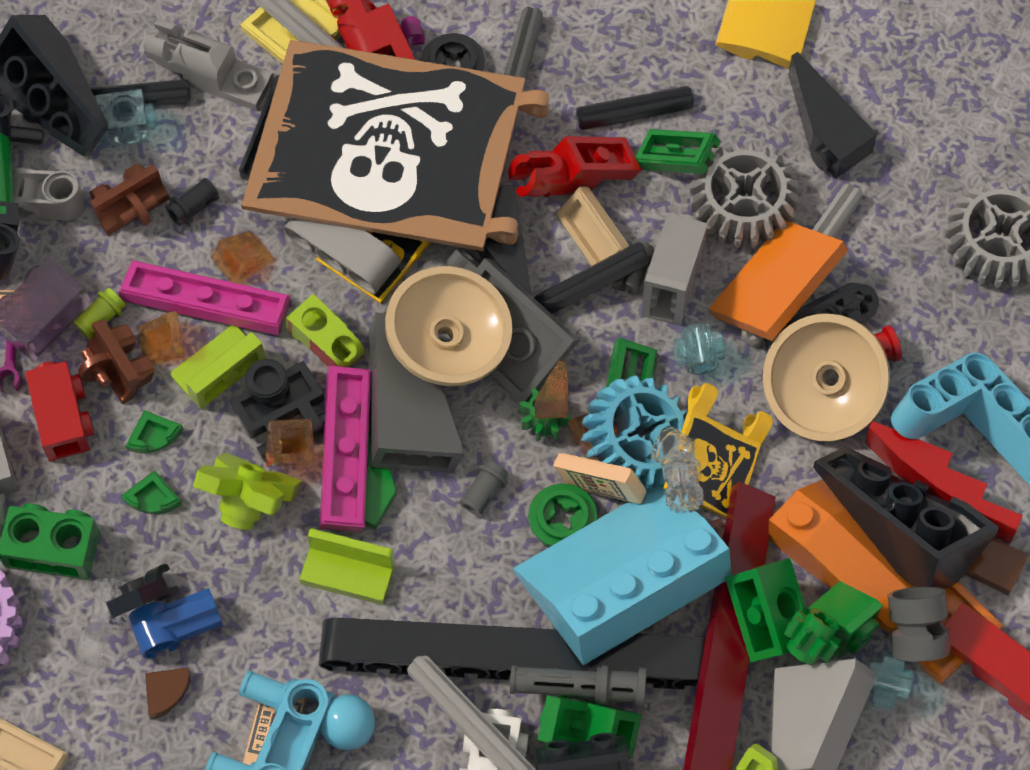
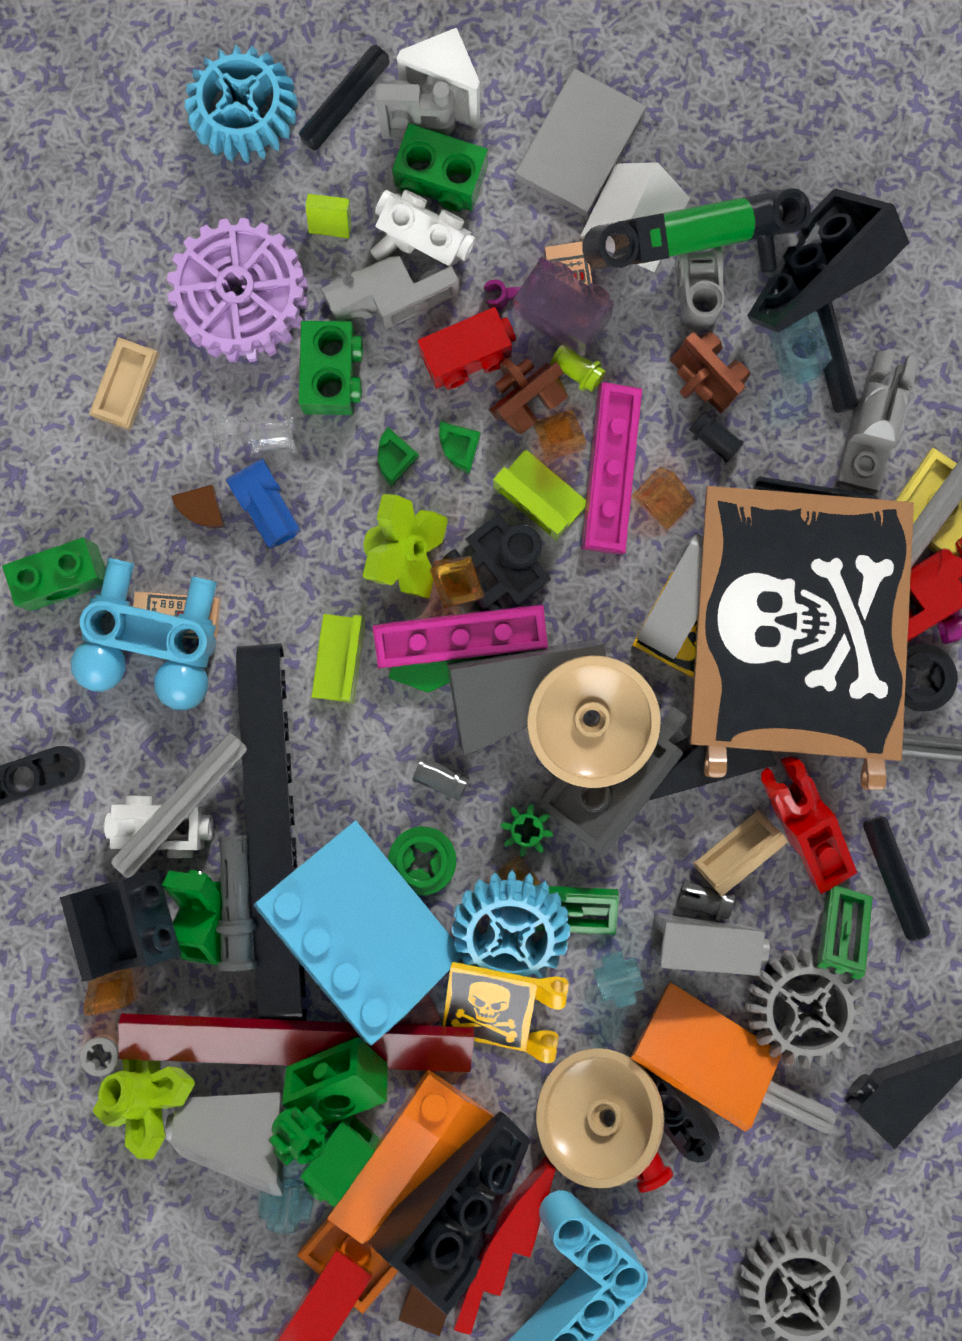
camera: 85 degrees right, 20 degrees up
(142, 591) = (275, 465): black plate -> none
(324, 333) = (582, 596): lime leg -> none
(553, 397) = (533, 843): clear orange slope -> none
(594, 278) = (682, 860): black axle -> none
(600, 478) = (457, 896): light nougat tile -> none
(680, 470) = (461, 980): clear connector -> none
(919, 624) = (331, 1240): dark grey wheel -> none

